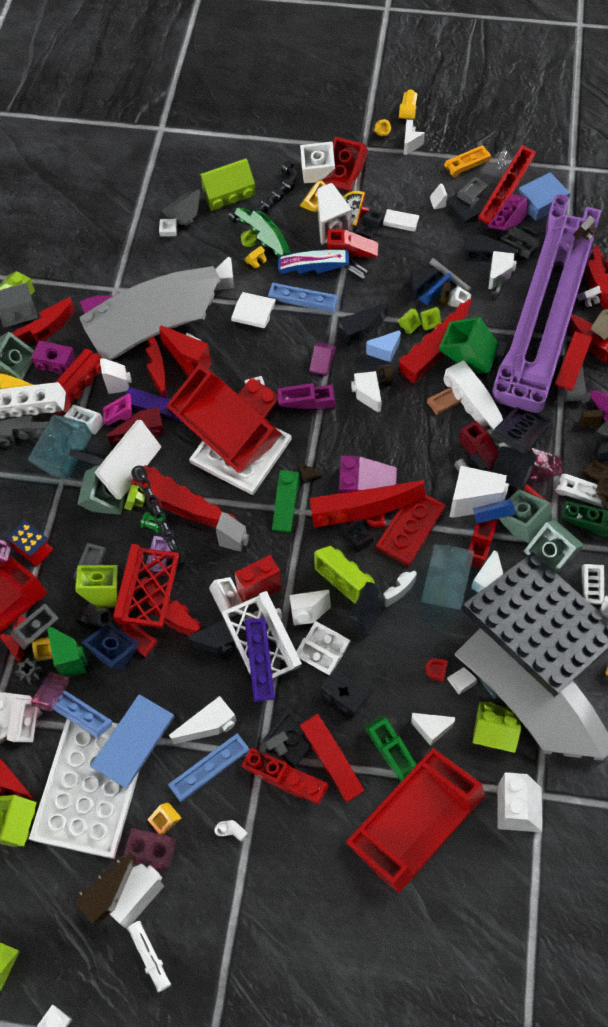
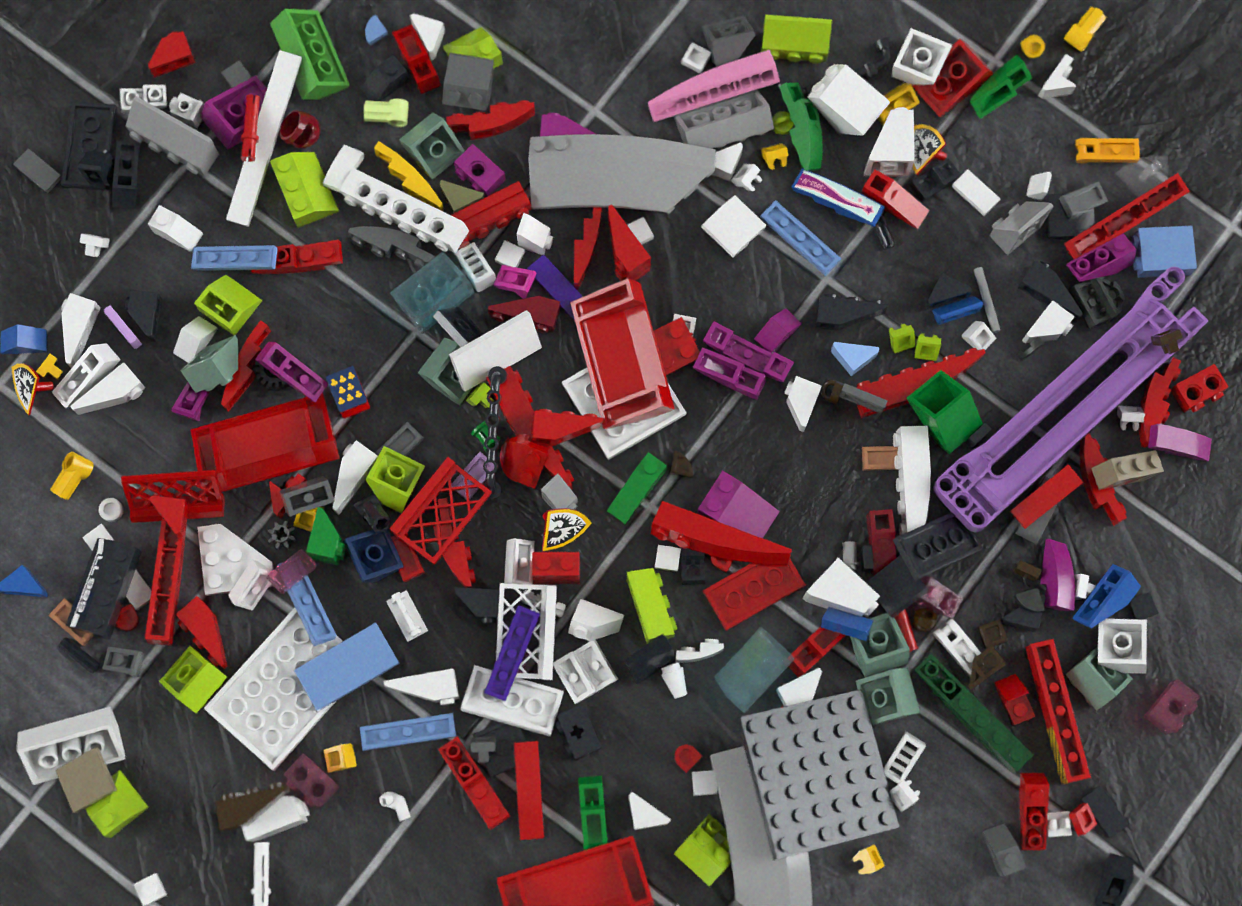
camera: 25 degrees right, 15 degrees up
(46, 376) = (459, 196): none -> olive slope
(64, 596) = (352, 474): none -> white slope
(103, 399) = (509, 255): none -> white tile
(160, 679) = (406, 615): none -> white hinge
(190, 521) = (523, 459): none -> red slope
(191, 234) = (716, 85): none -> bright pink slope
(204, 485) = (556, 428): none -> red slope
(212, 250) = (726, 121): none -> light grey slope
(244, 277) = (745, 175): none -> white tile
(245, 551) = (563, 527): none -> shield
(284, 201) = (847, 100): none -> white slope
(293, 697) = (526, 707): none -> white tile
(336, 376) = (750, 355): none -> magenta slope
(336, 537) = (667, 558): none -> white tile
(378, 154) = (1000, 86): none -> green slope
(393, 617) = (674, 678): none -> white cone
(409, 362) = (863, 398): none -> dark grey tile
(443, 219) = (1020, 224): none -> light grey slope
(445, 294) = (965, 322): dark brown tile -> none
(542, 483) = (924, 620): none -> dark brown tile

